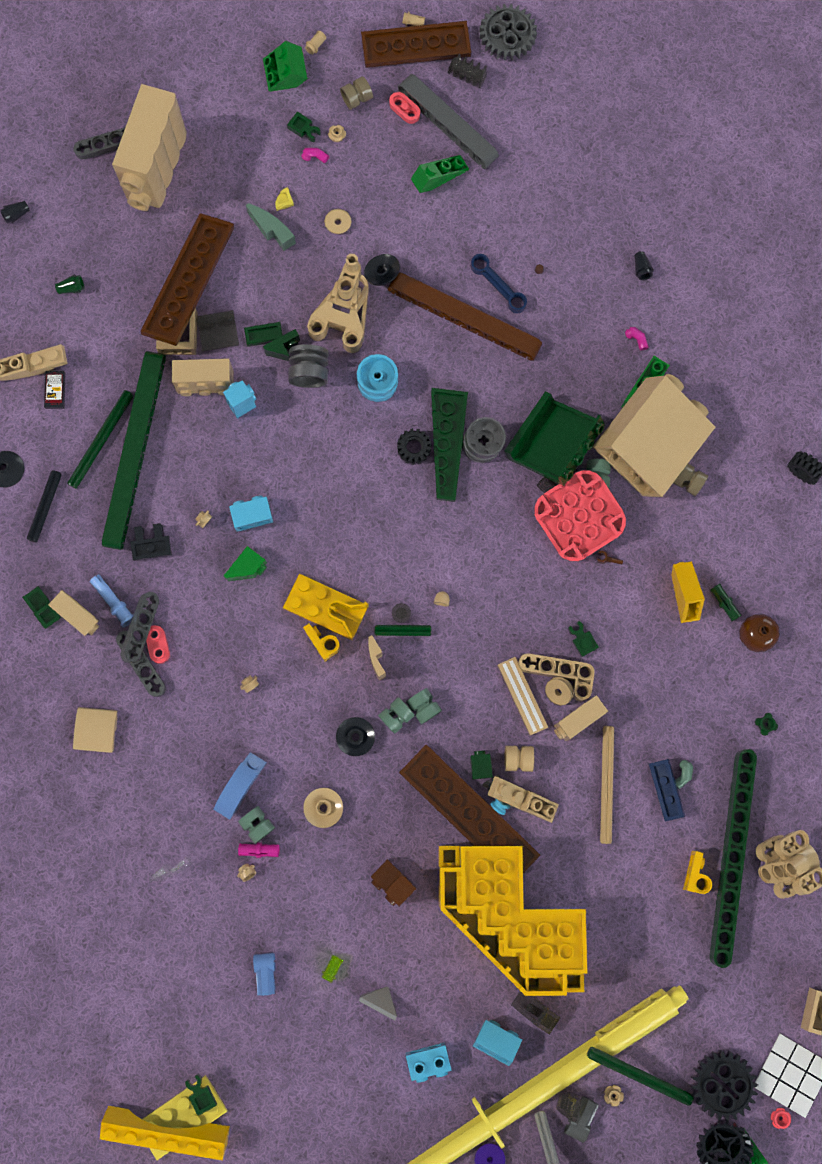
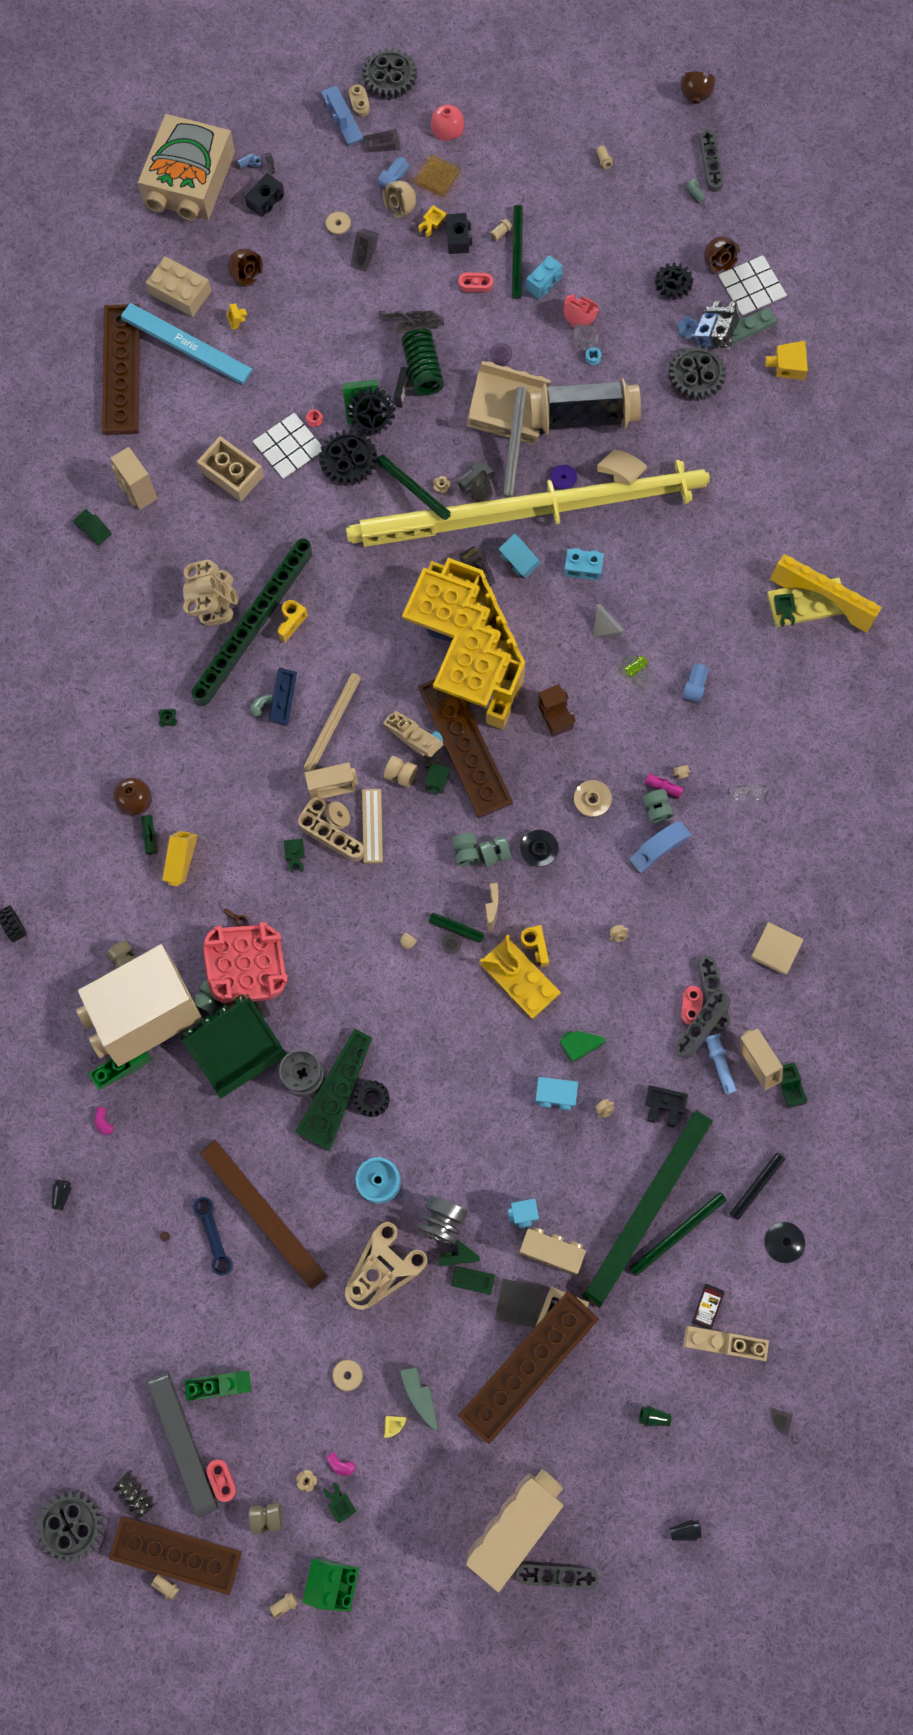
camera: 150 degrees left, 5 degrees down
(382, 269) = (326, 1307): black dish -> none

